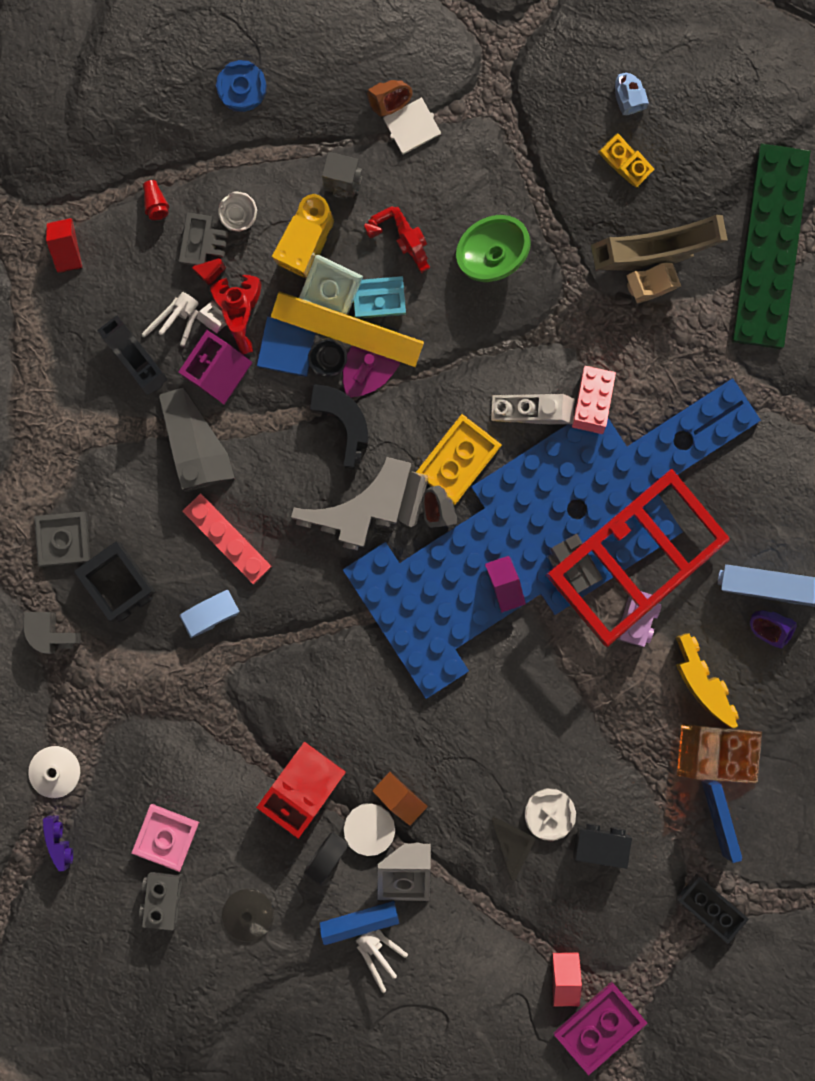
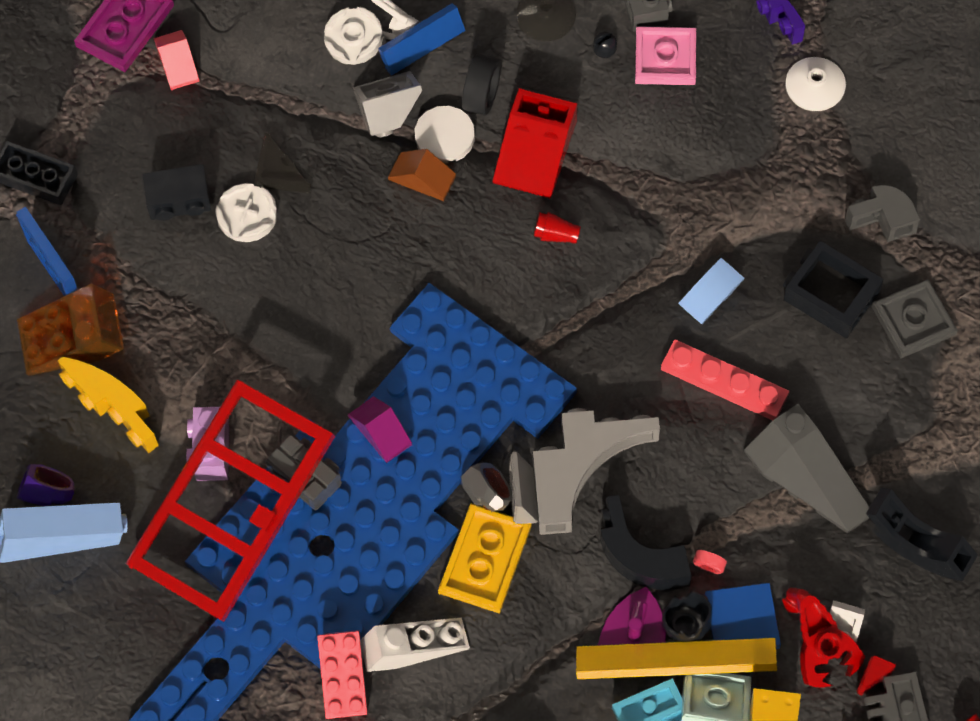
camera: 165 degrees right, 20 degrees down
(181, 306) = (886, 622): white plant -> none
(208, 862) = (606, 48): none -> black hinge
(215, 367) = (818, 559): magenta slope -> none
(294, 396) = (709, 562): none -> coral tile
(312, 711) = (555, 229): none -> red cone
(413, 948) = (353, 35): none -> white tile

